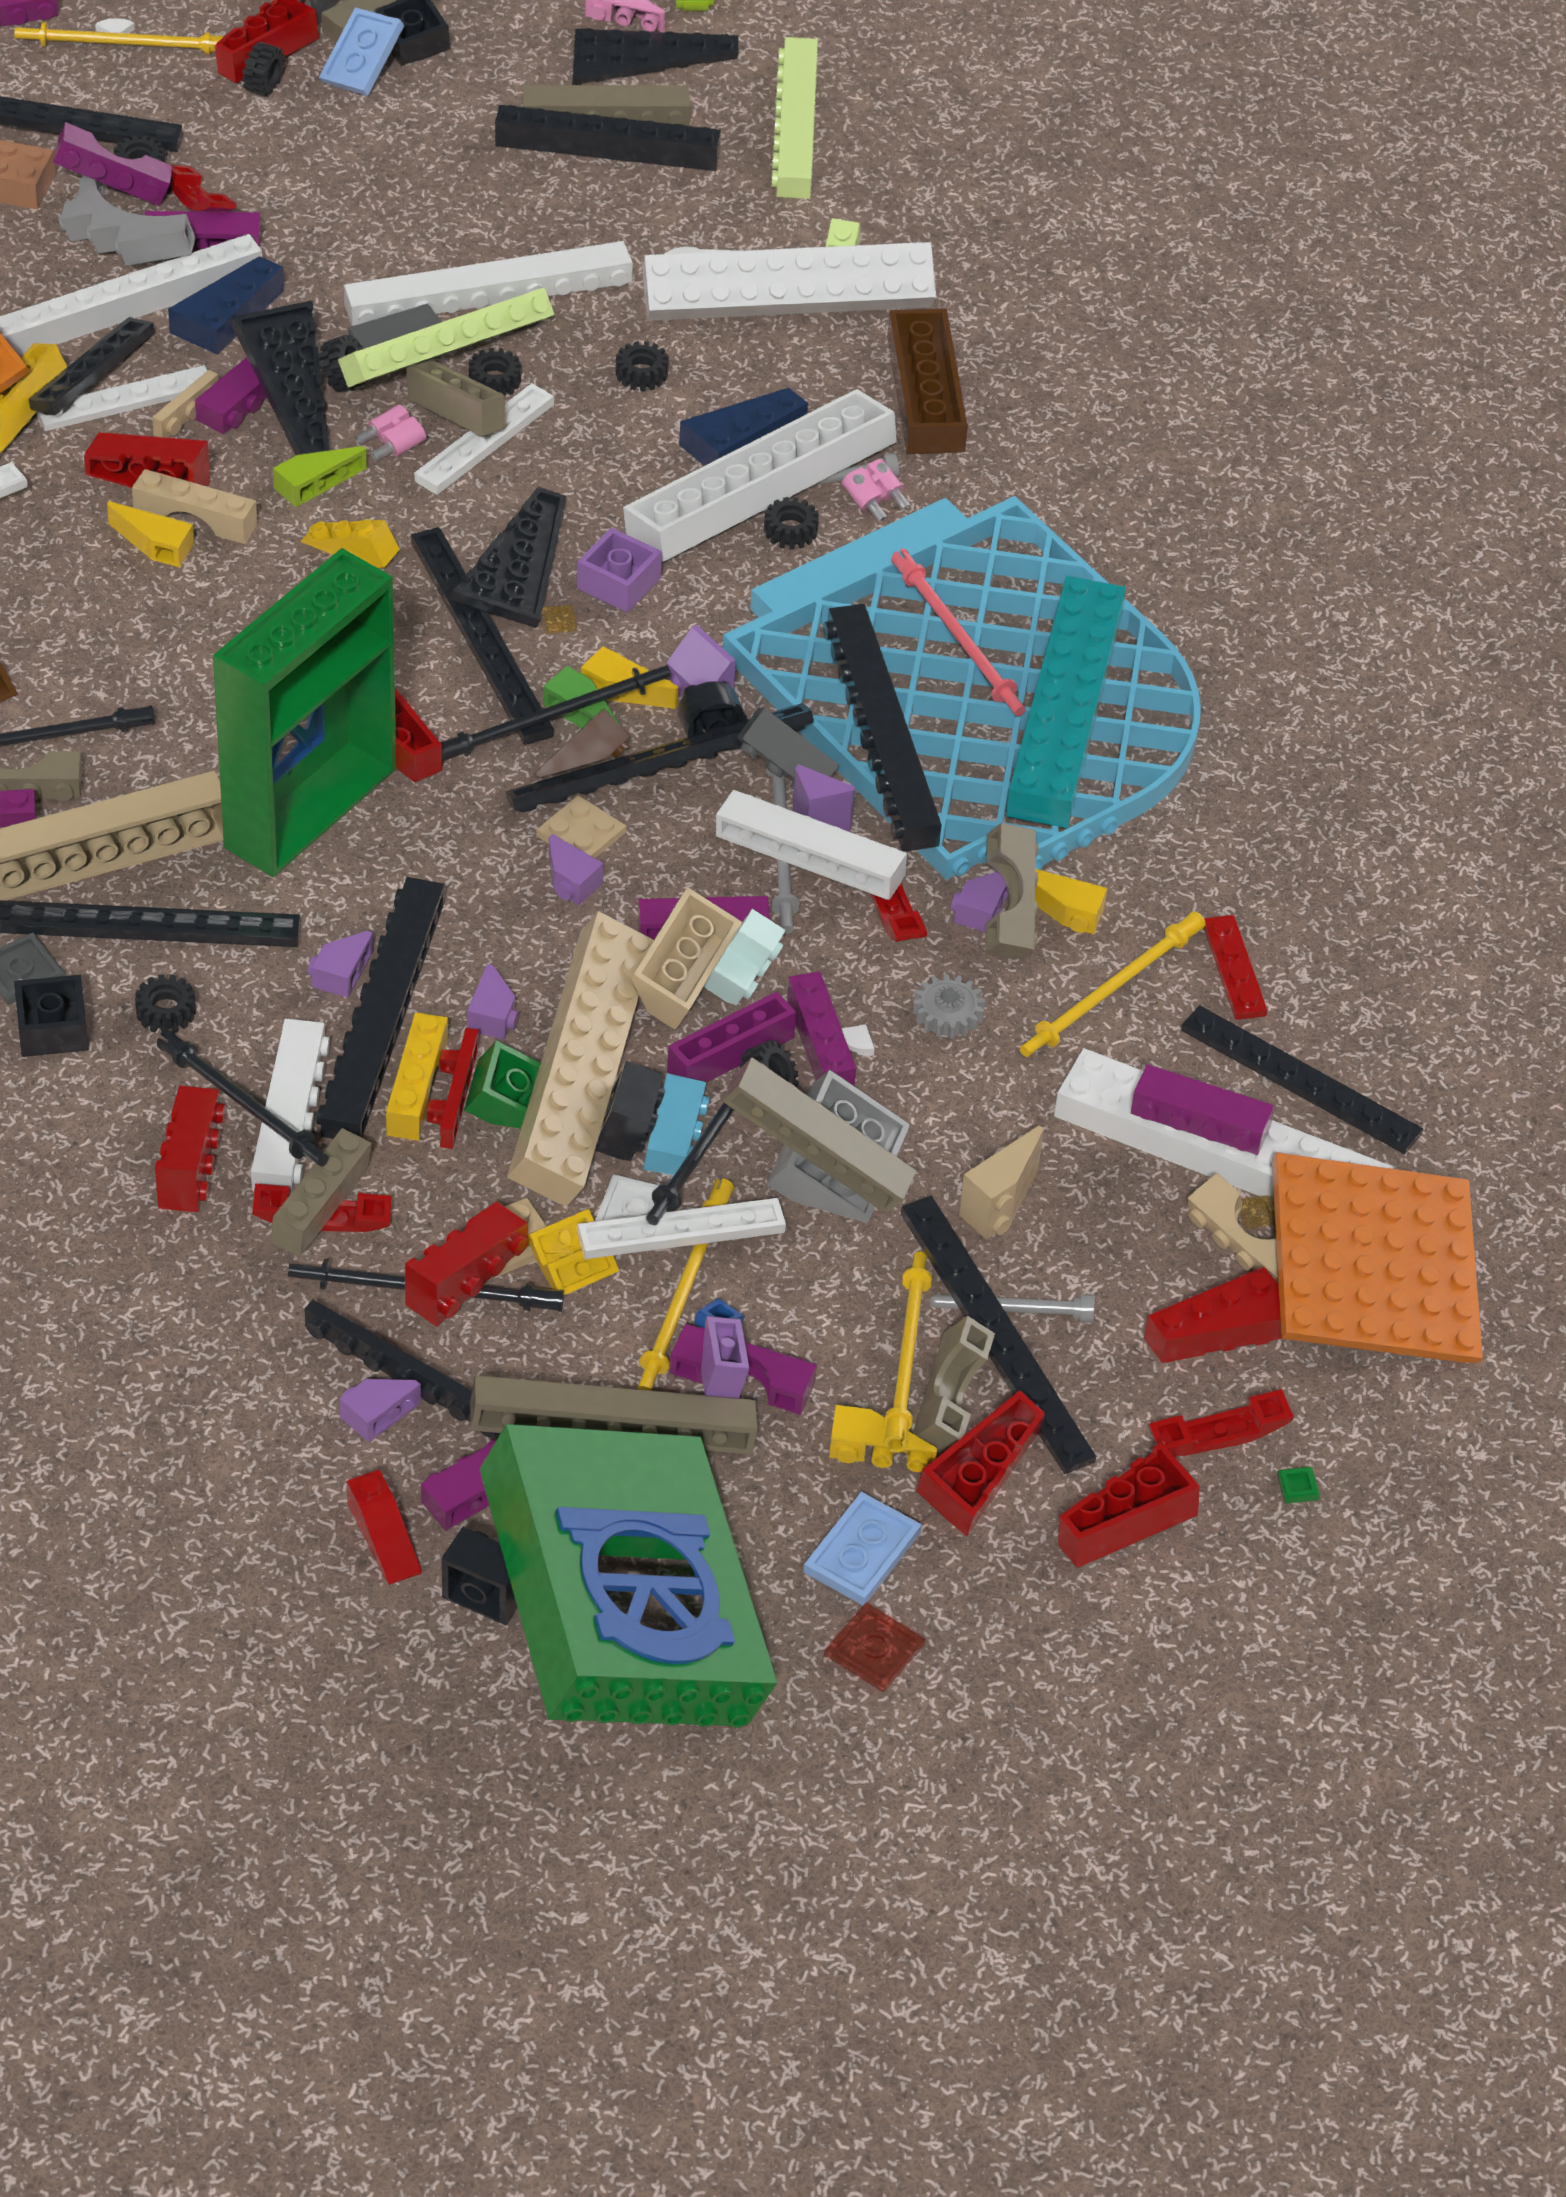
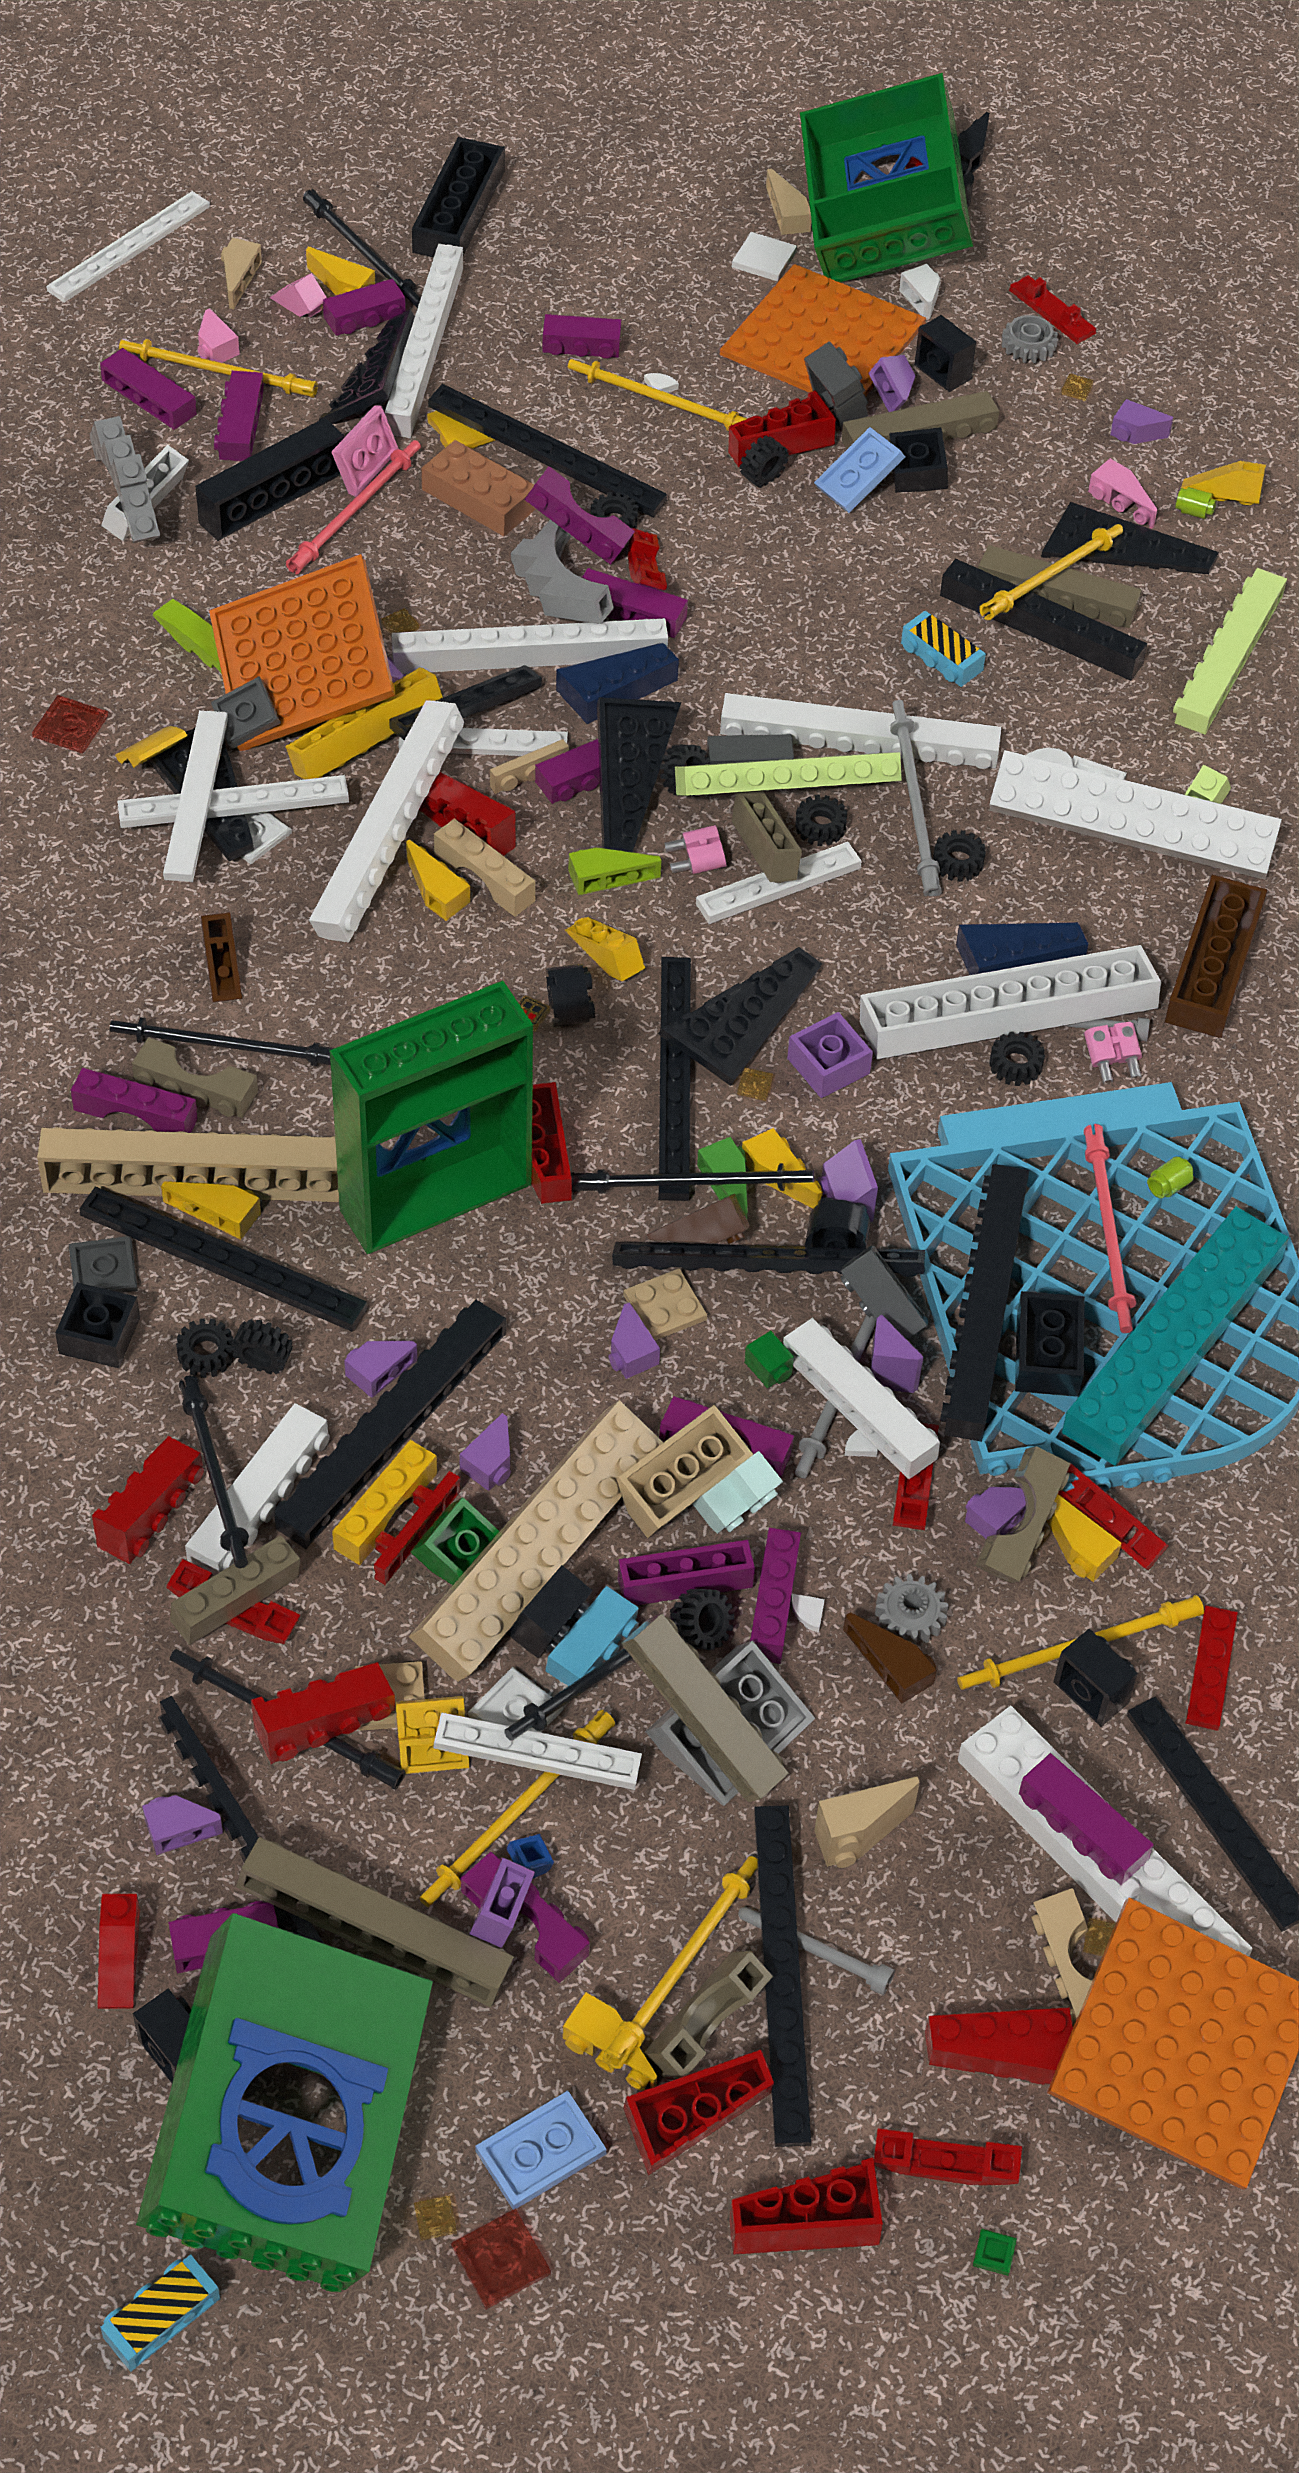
camera: 25 degrees right, 5 degrees up
(80, 490) = (387, 821): none -> white brick
(105, 878) = (216, 1204): none -> yellow slope
(223, 969) = (261, 1346): none -> black tyre
(527, 190) = (942, 648): none -> brick
(571, 125) = (1004, 601): none -> yellow bar
(595, 1798) = (159, 2312): none -> brick
(619, 384) = (928, 868): none -> light grey bar
(707, 842) = (769, 1359): none -> green brick
(798, 1637) = (435, 2218): none -> clear yellow tile
(827, 889) = (860, 1446): none -> white tile
(954, 1050) = (892, 1657): none -> reddish brown slope
(961, 742) = (1049, 1344): none -> black brick
(991, 574) = (1170, 1177): none -> lime brick
(1124, 886) = (1106, 1512): none -> red hinge
(1143, 1002) = (1095, 1677): none -> black brick

